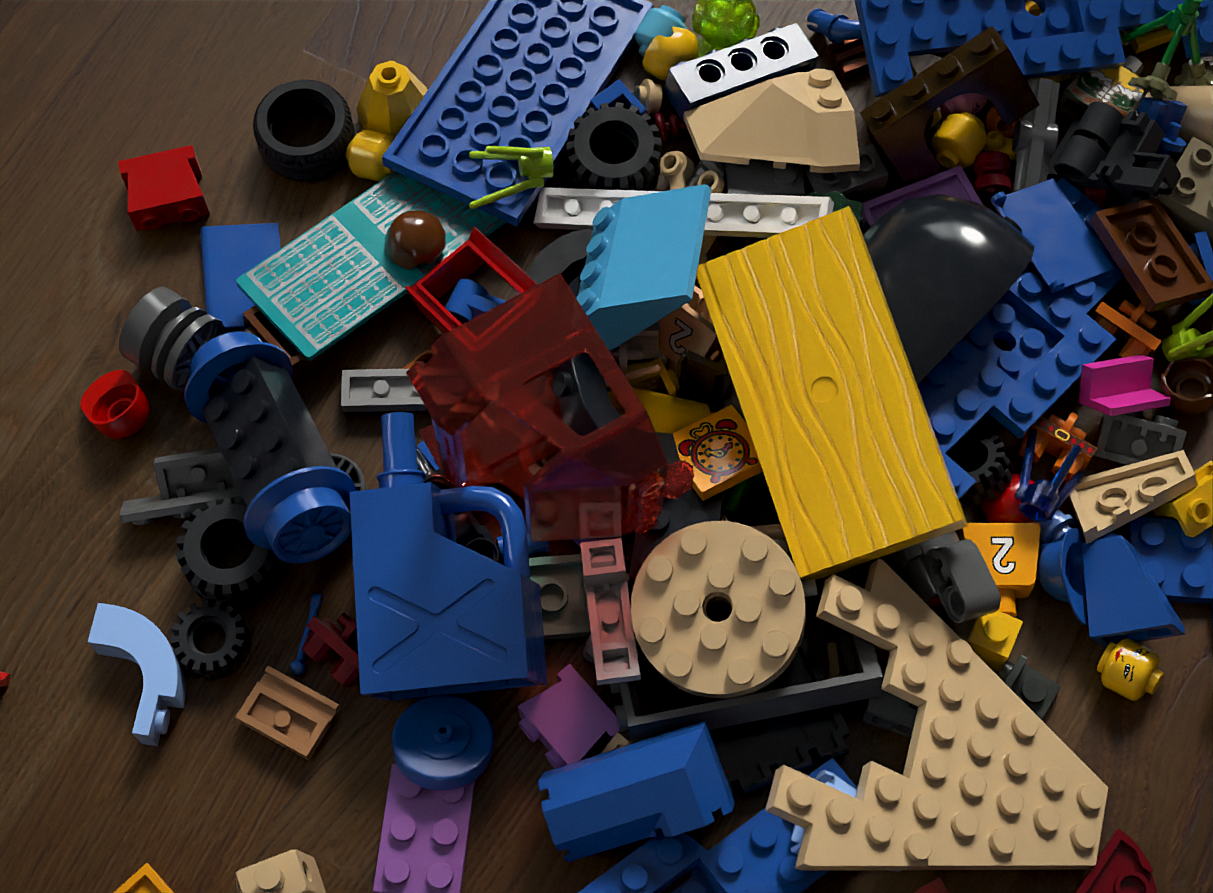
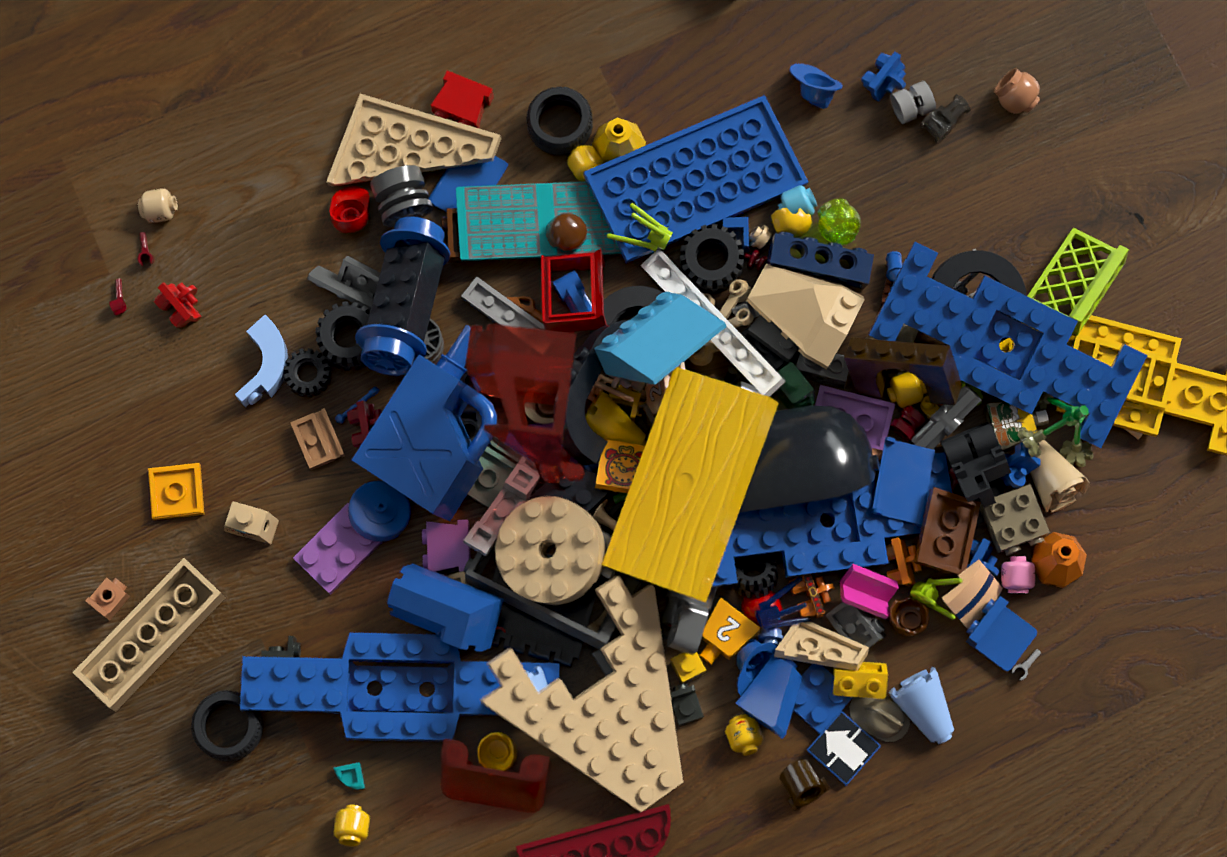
camera: 40 degrees right, 10 degrees up
(95, 285) = (395, 136): none -> tan wing

